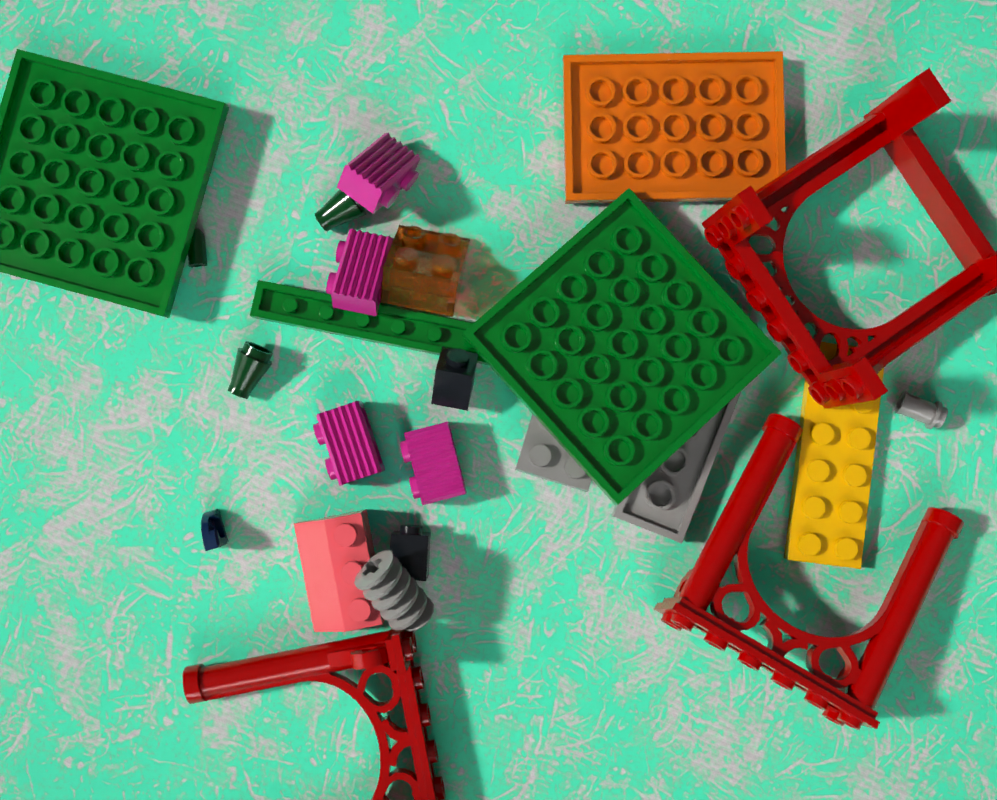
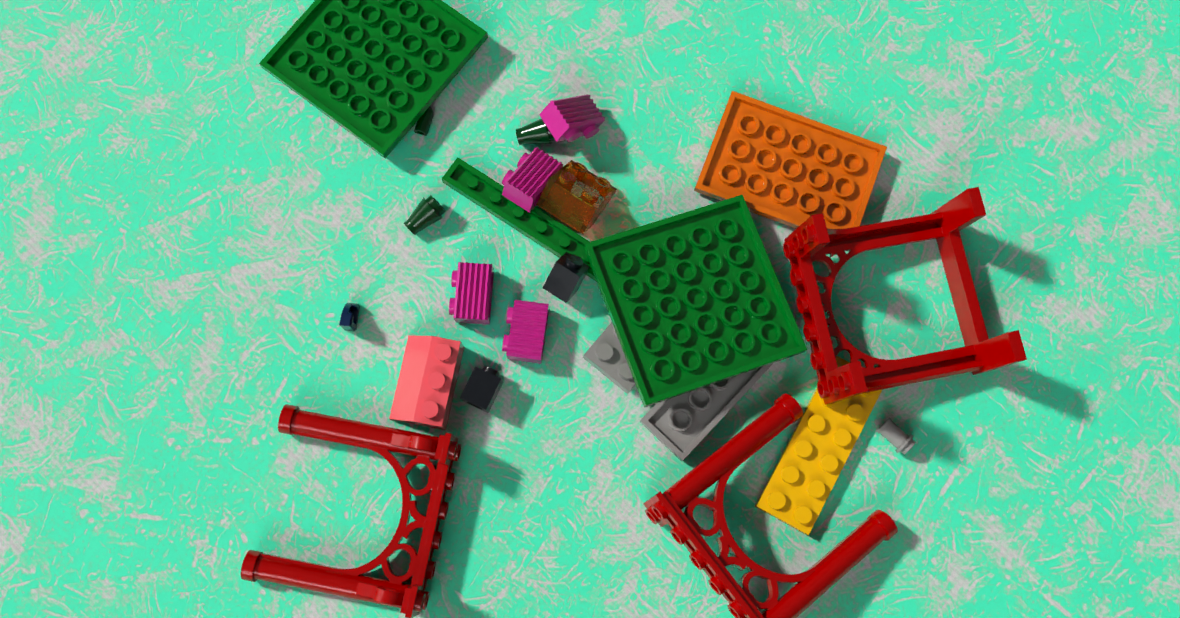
camera: 20 degrees right, 10 degrees down
(394, 592) = (462, 405): light grey piece -> none

